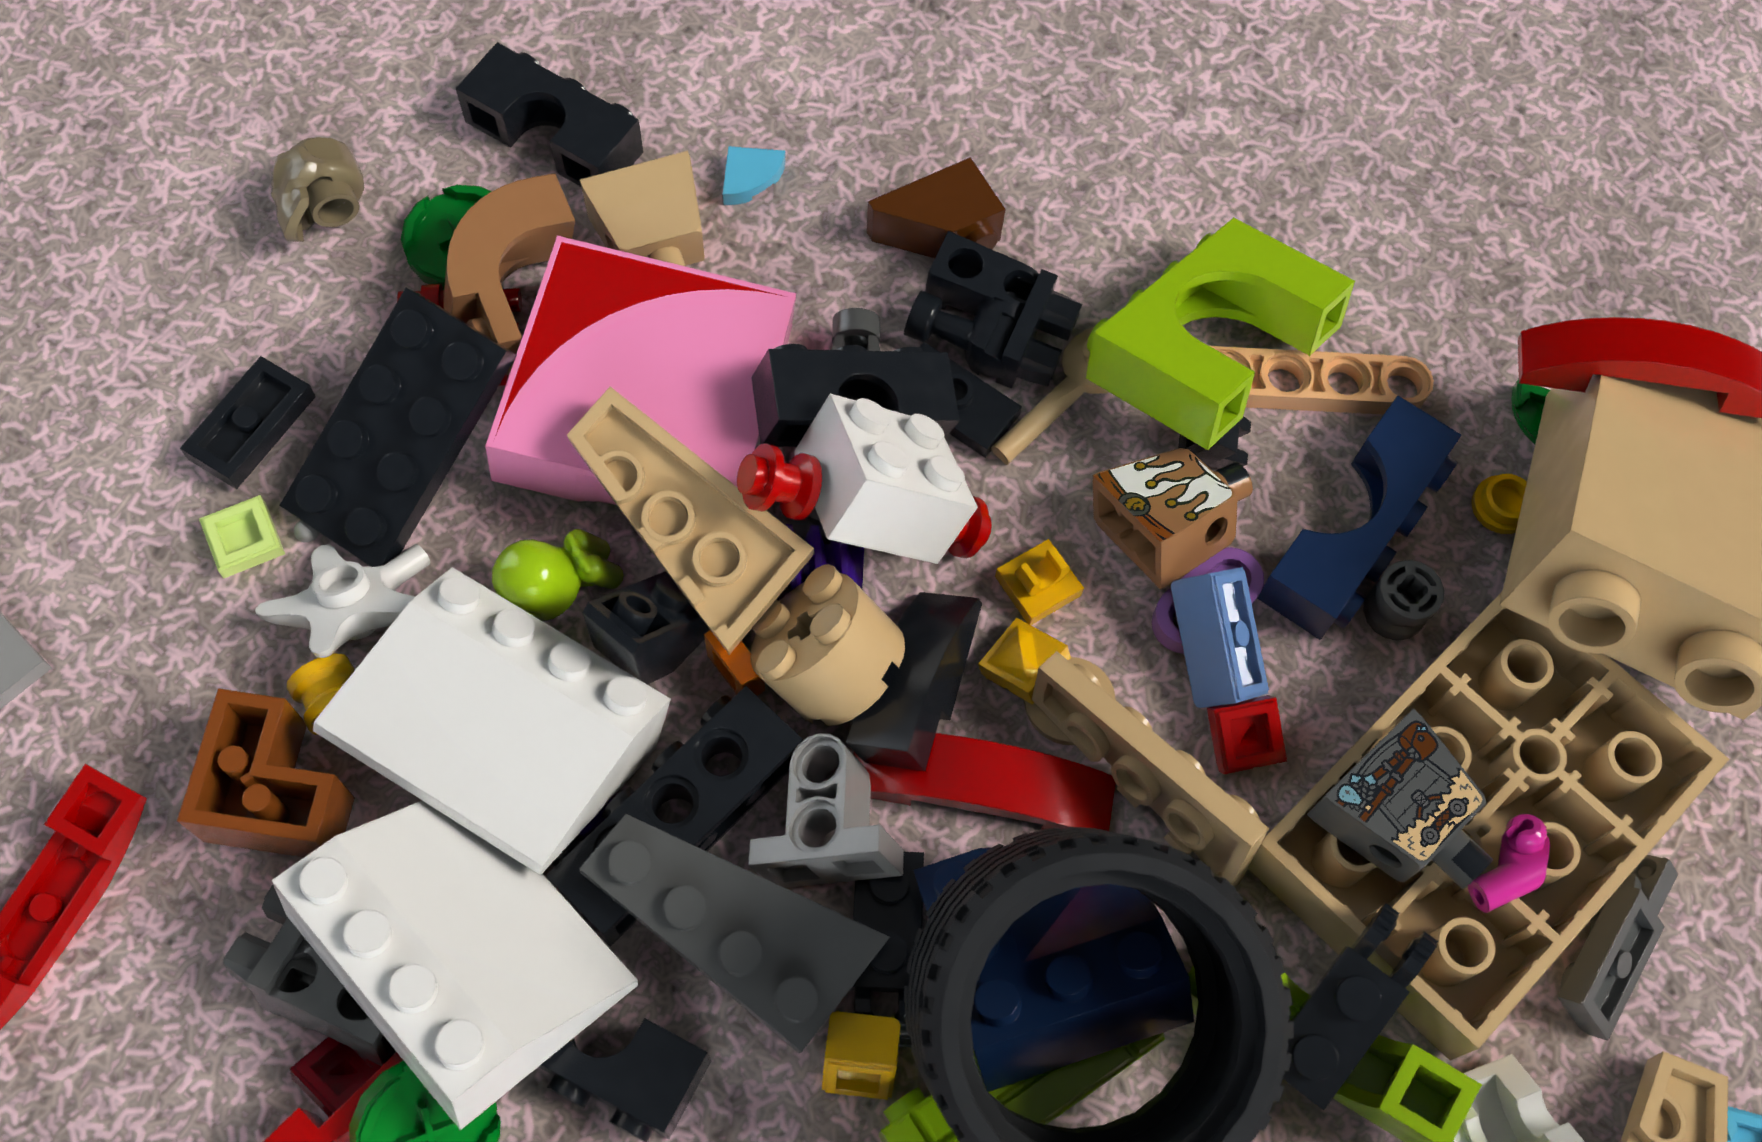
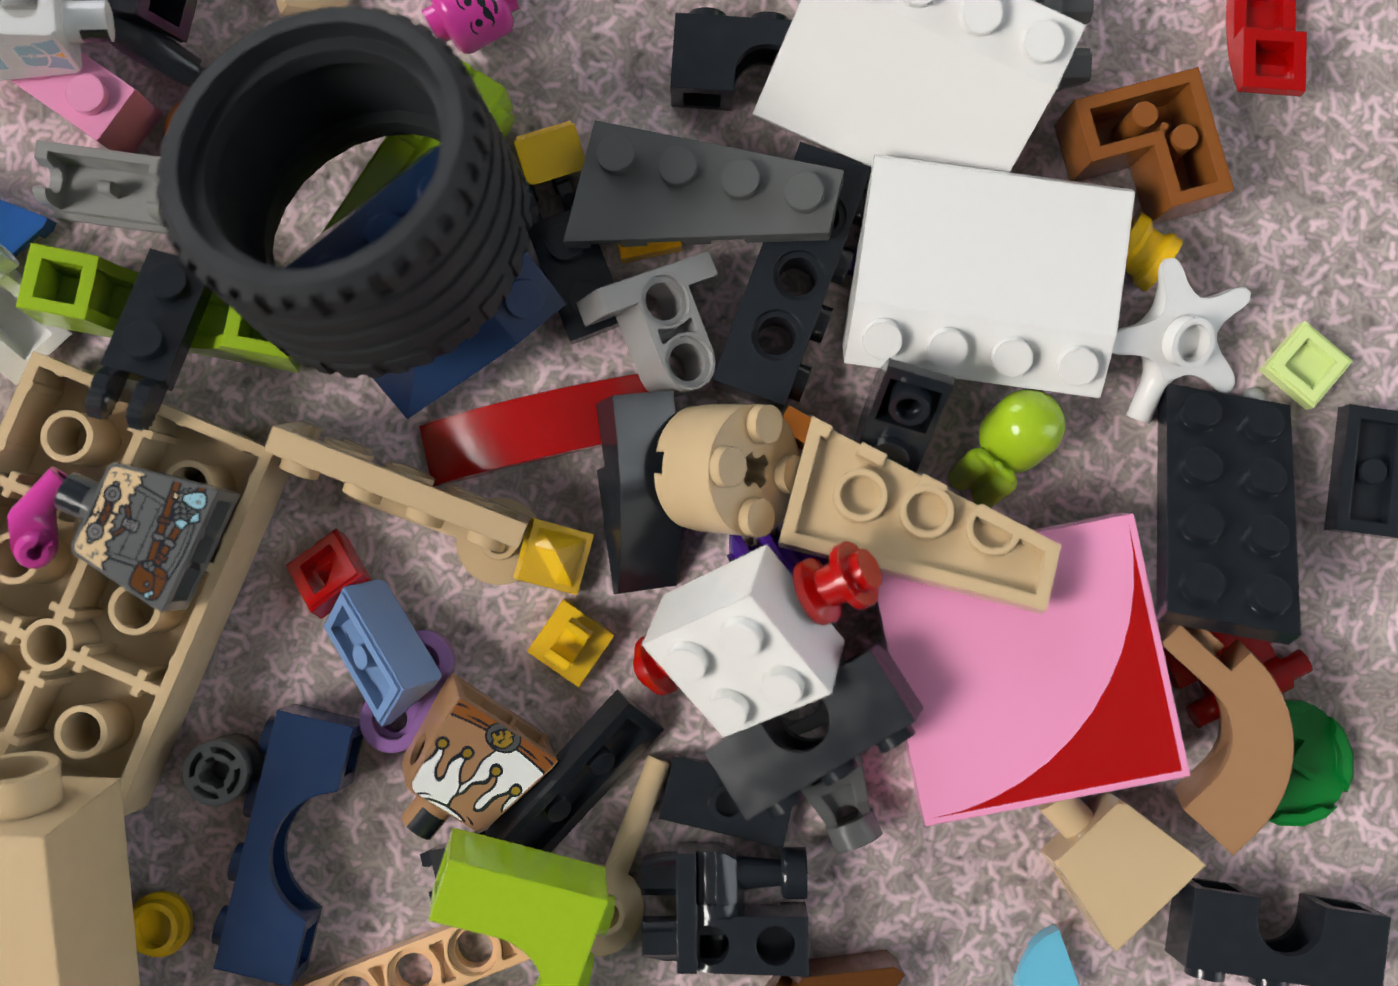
camera: 160 degrees right, 20 degrees up
(1034, 483) = (581, 777): none -> black plate

